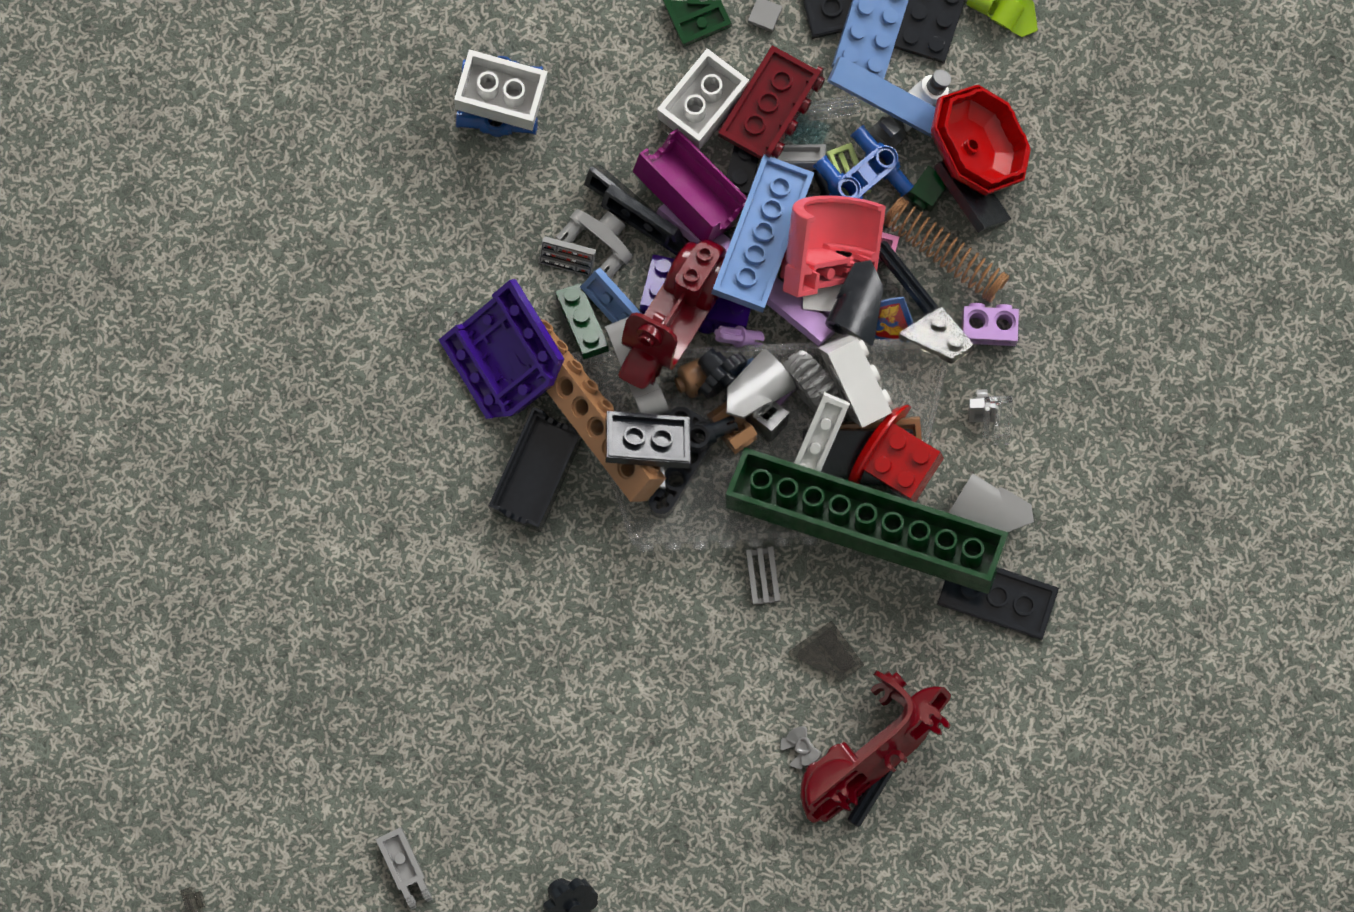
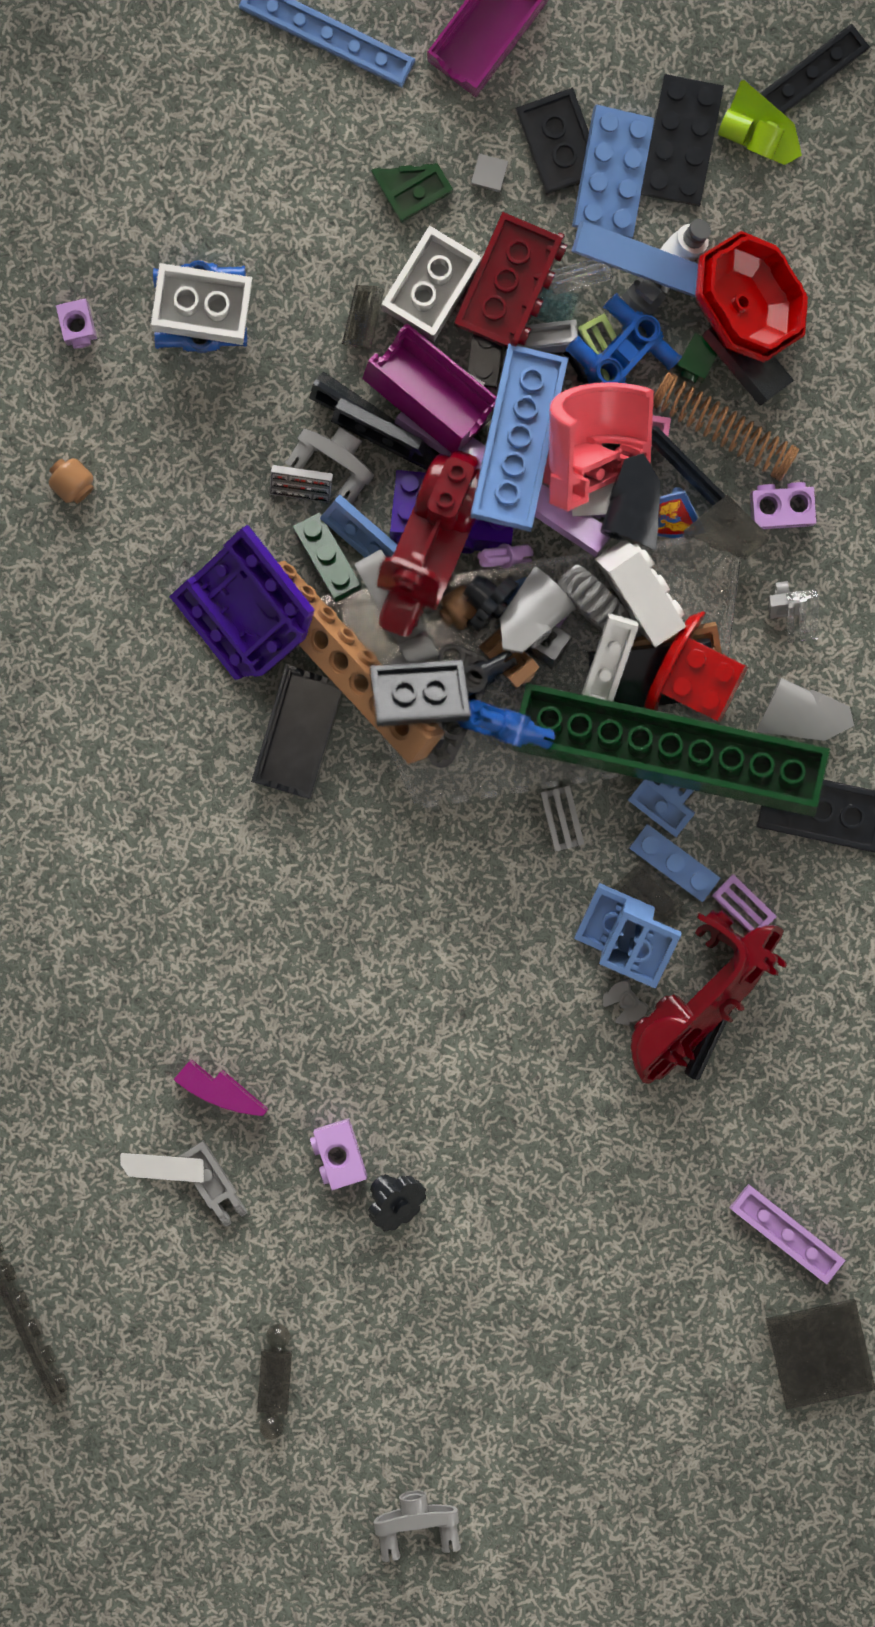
camera: 10 degrees left, 10 degrees up
(361, 847) = (163, 1167): none -> white sticker
(366, 230) = (71, 480): none -> medium nougat head
(387, 87) = (70, 311): none -> lavender brick
(422, 782) = (220, 1091): none -> magenta slope
(533, 868) = (339, 1173): none -> lavender brick
(640, 121) = (363, 316): none -> clear smoke plate
(719, 477) = (505, 725): none -> blue piece
(809, 684) = (627, 935): none -> medium blue bracket
(855, 572) = (663, 805): none -> medium blue hinge
(859, 627) = (674, 863): none -> medium blue plate
(902, 655) = (725, 888): none -> lavender tile

